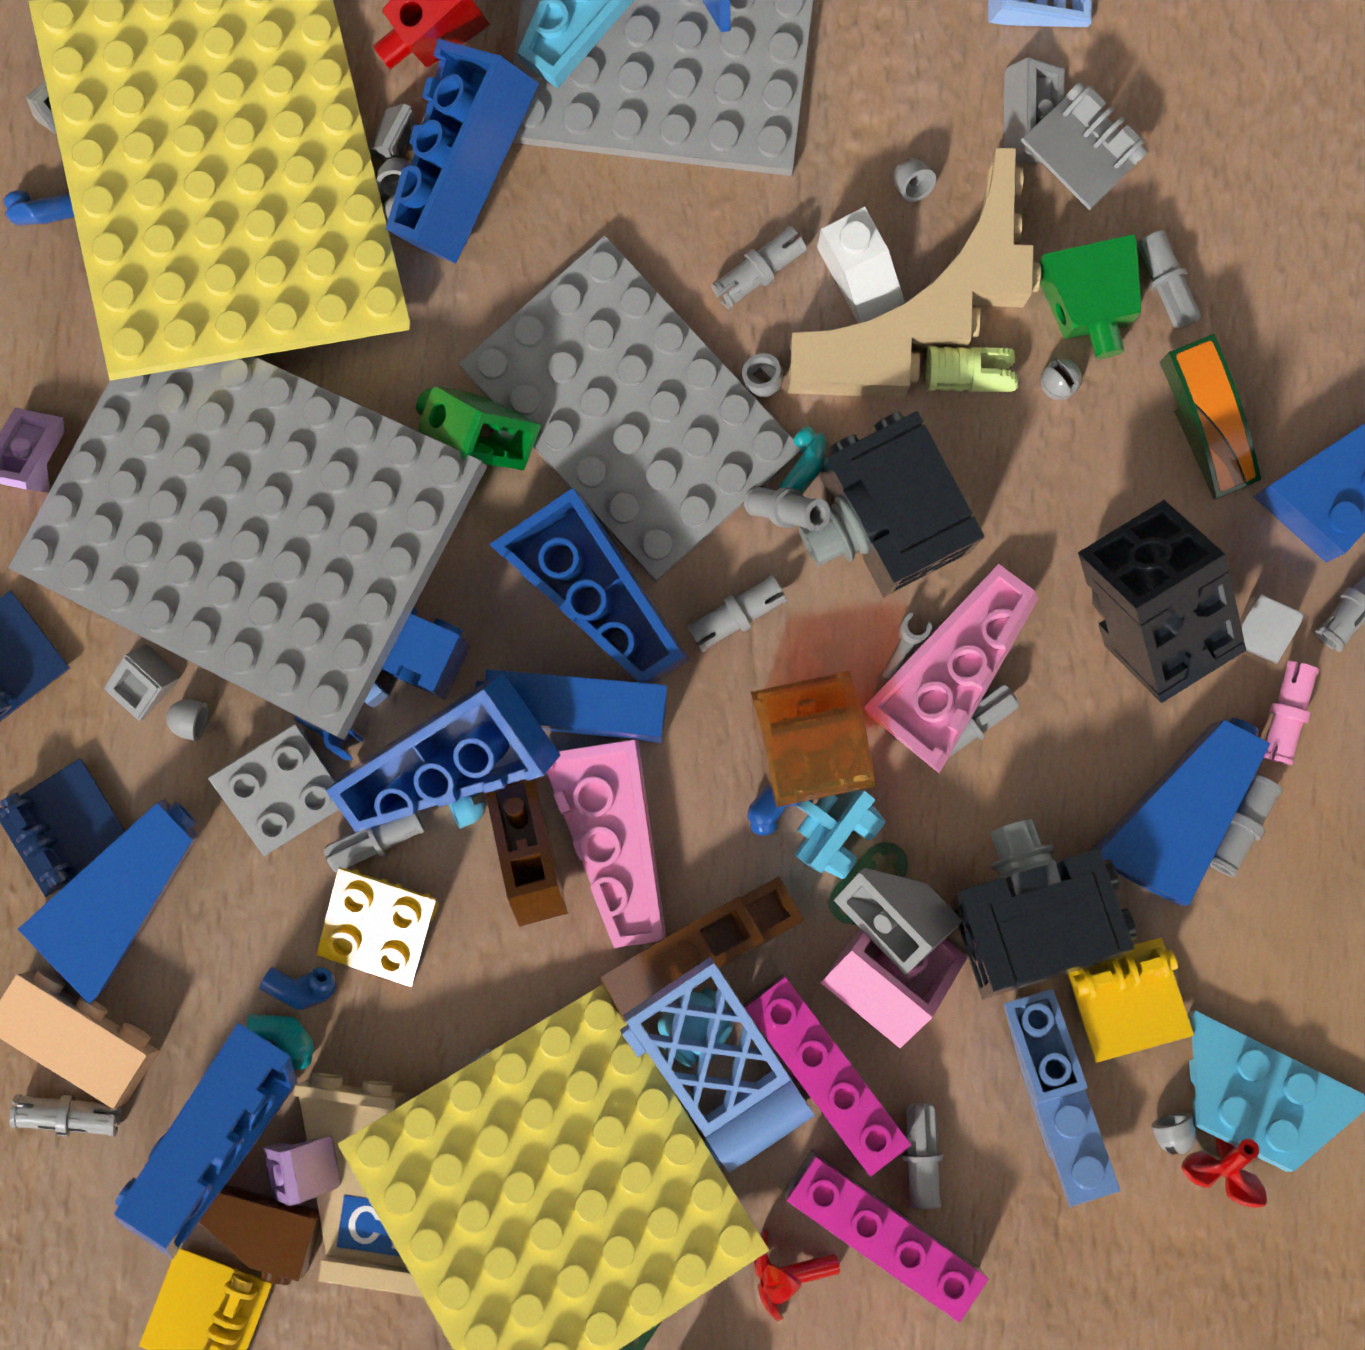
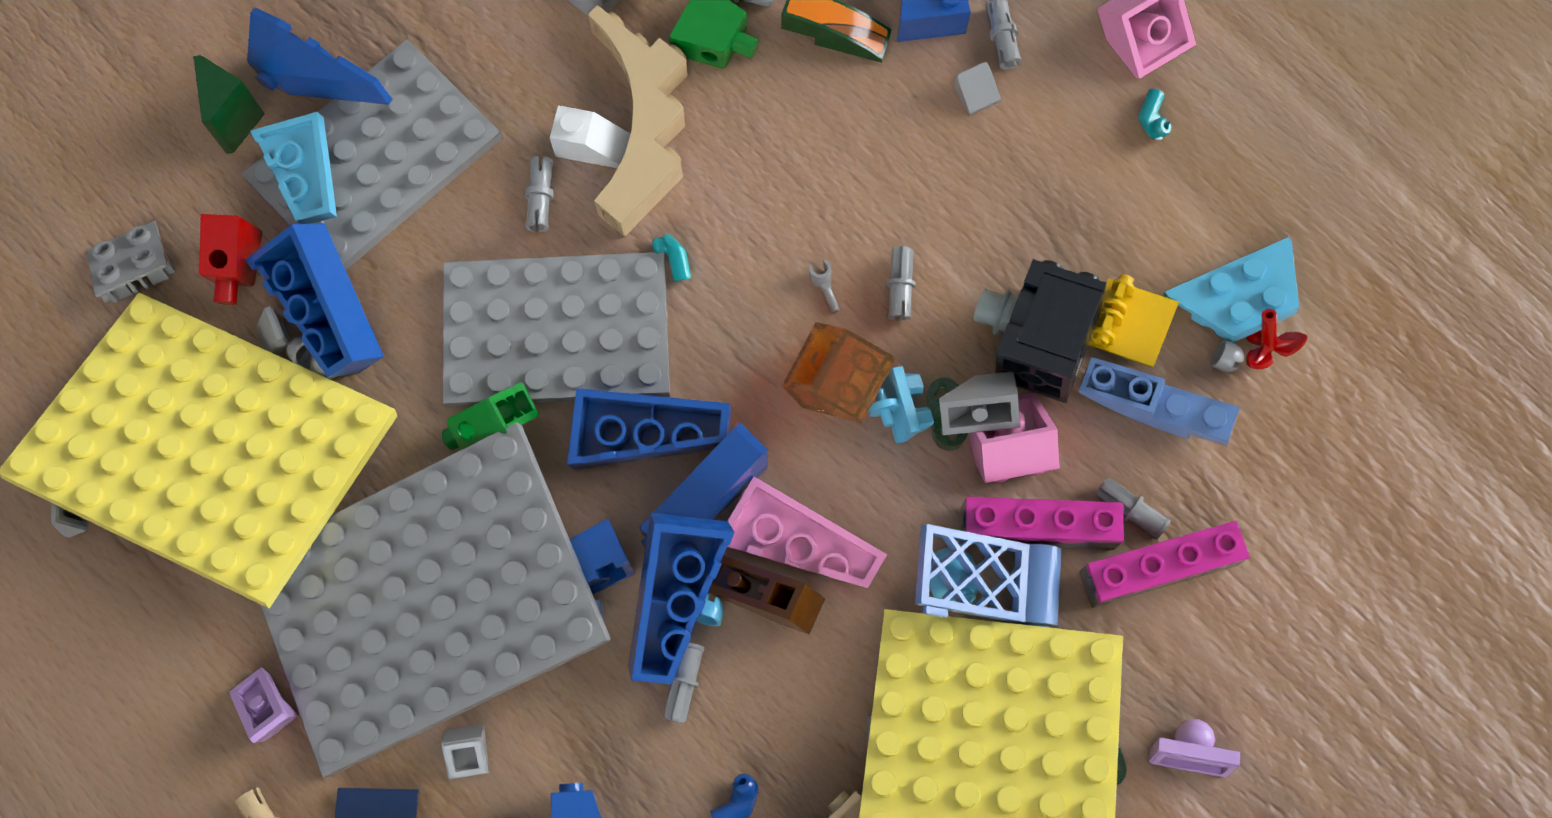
camera: 50 degrees left, 10 degrees down
(38, 211) = (115, 589): blue arm -> none
(188, 718) = (513, 739): light grey hinge -> none
(277, 789) = (604, 716): light grey hinge -> none
(331, 741) = (599, 655): blue hand -> none
(376, 926) = (738, 723): hinge -> none
(720, 934) = (911, 510): reddish brown slope -> none
(737, 613) = (728, 362): light grey pin -> none
(764, 813) = (857, 436): blue arm -> none
(771, 370) = (602, 233): light grey hinge -> none
(781, 1283) = (1148, 644): red plant -> none
(787, 508) = (692, 282): light grey pin -> none
(893, 505) = (740, 223): black piece -> none
(919, 188) = (560, 69): light grey hinge -> none
(949, 674) = (862, 271): bright pink wing -> none
(970, 369) = (698, 128): yellowish green hinge -> none
(1055, 385) = (745, 86): light grey hinge -> none
(1163, 600) = (918, 119): black piece -> none
(1184, 816) = (1047, 206): blue slope -> none
(1246, 825) = (1079, 185): light grey pin -> none
(1290, 712) = (1035, 113): bright pink pin -> none

